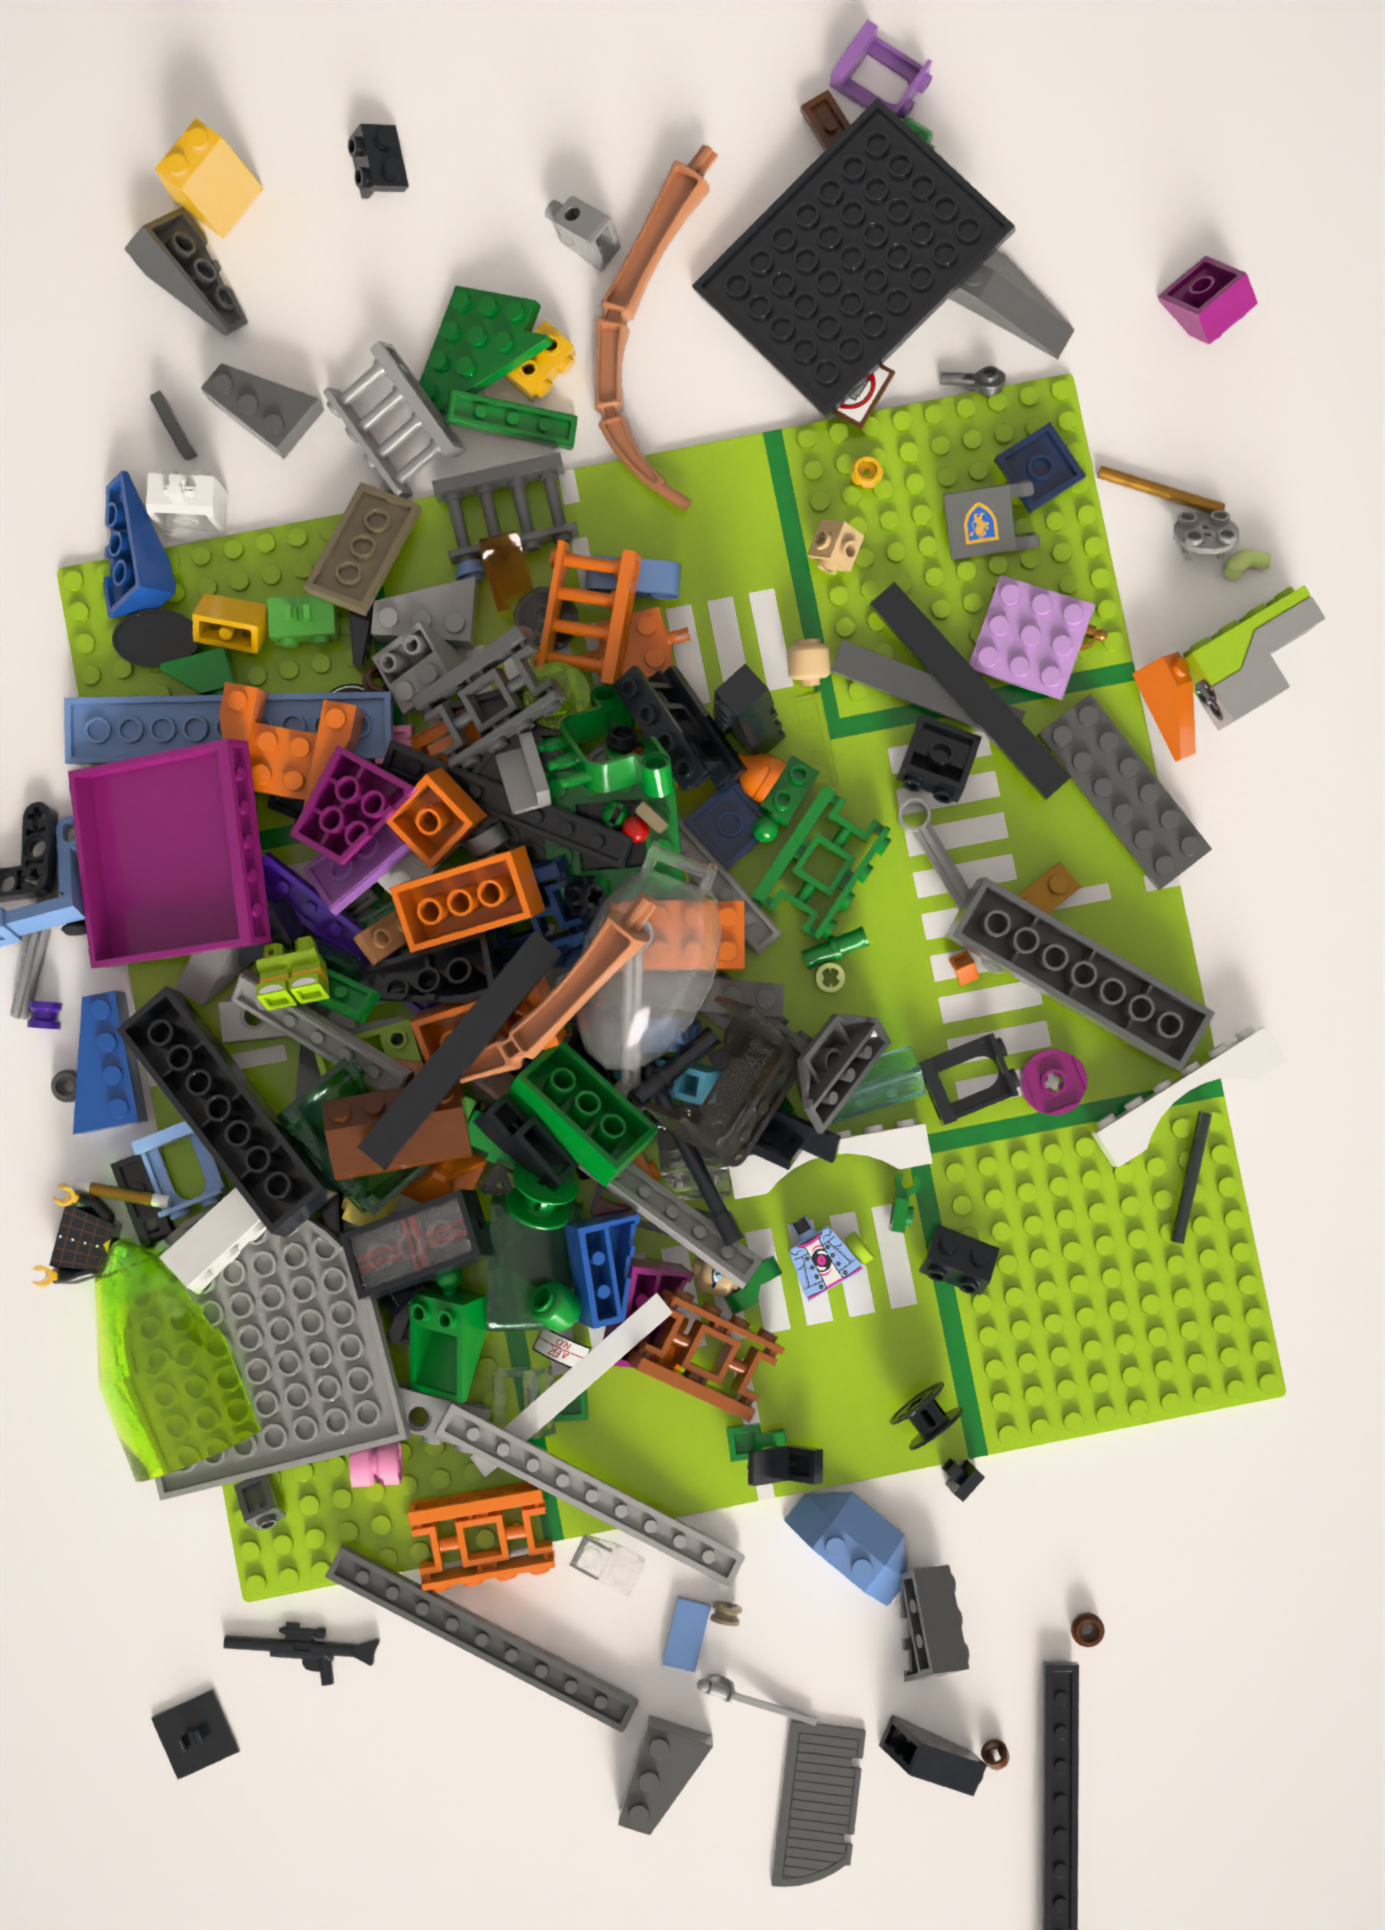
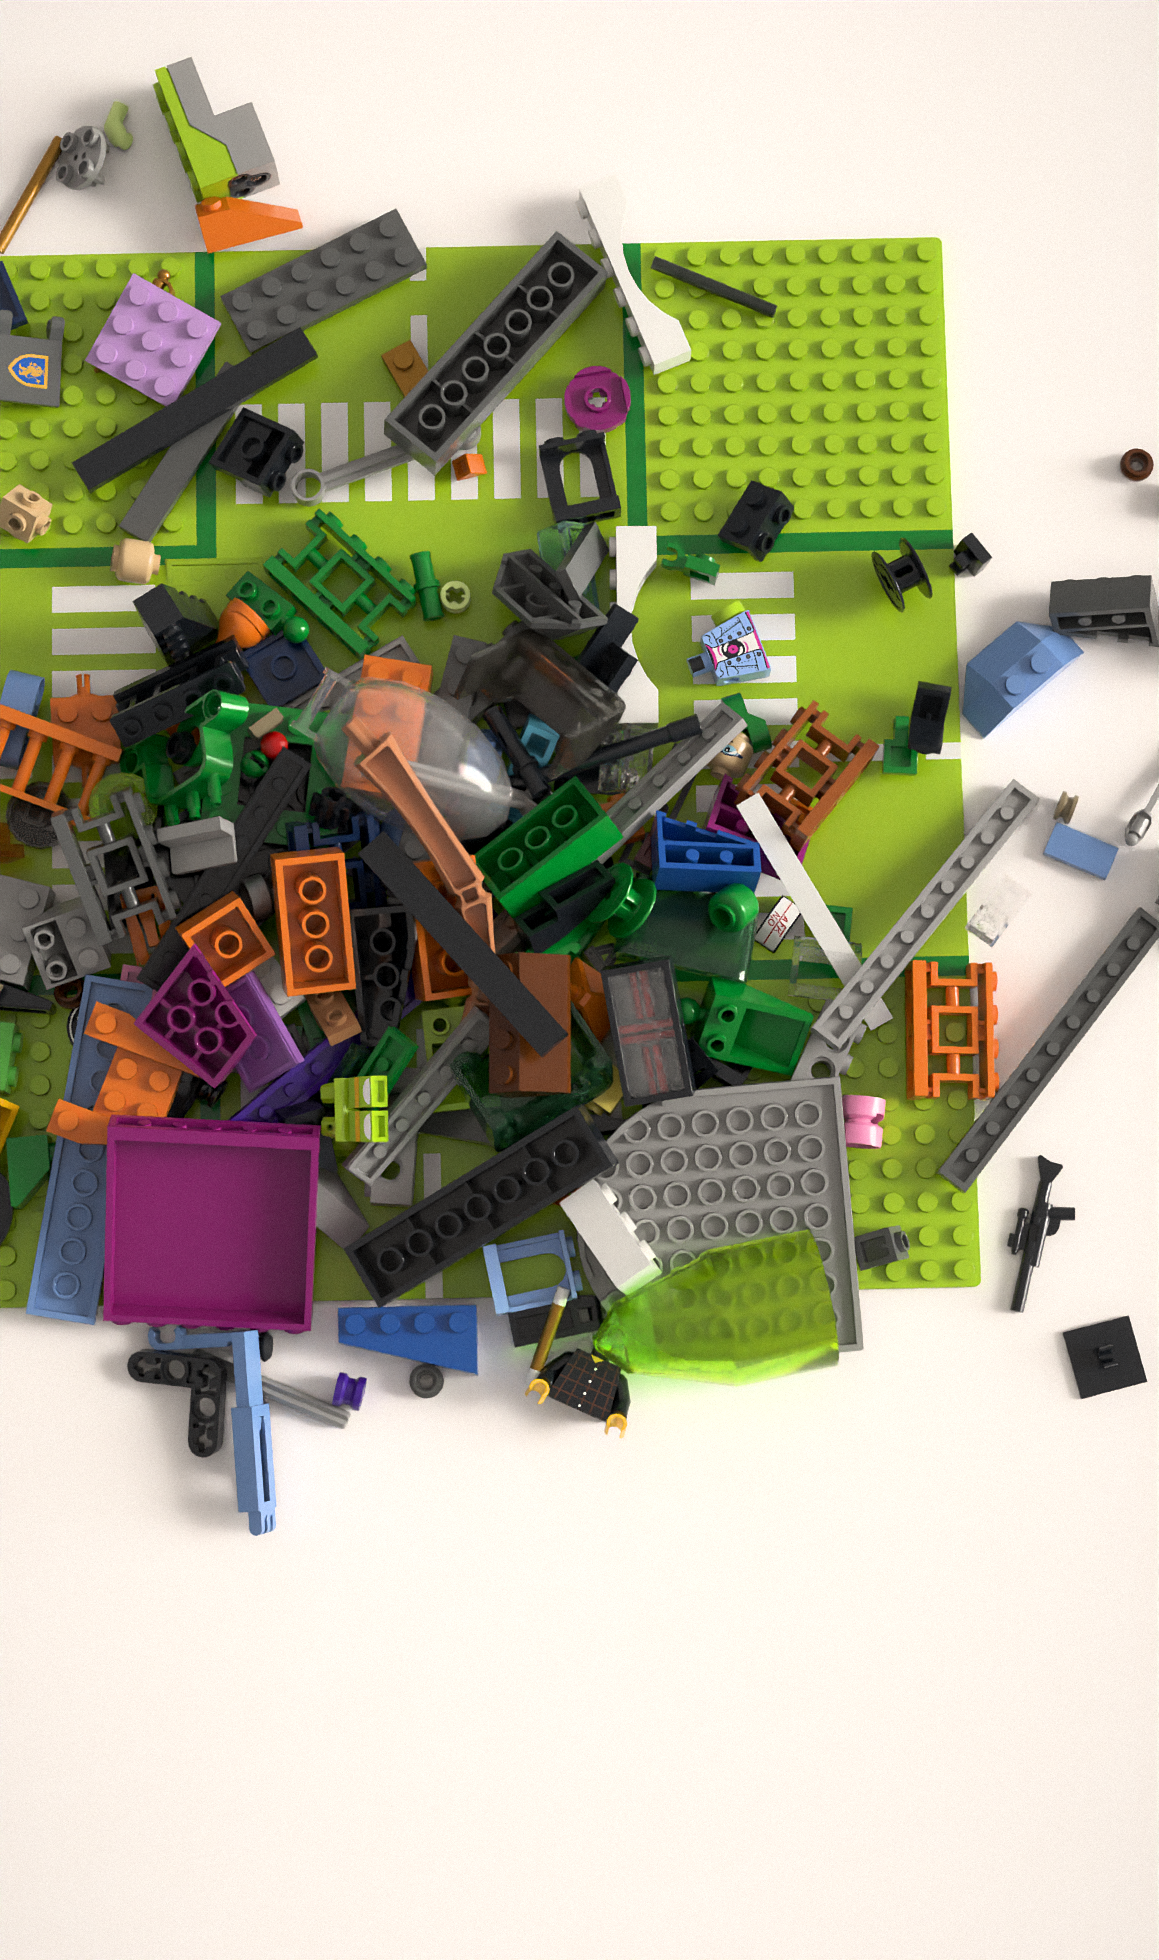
camera: 80 degrees left, 5 degrees down
(880, 1096) = (582, 561): none -> dark grey tile

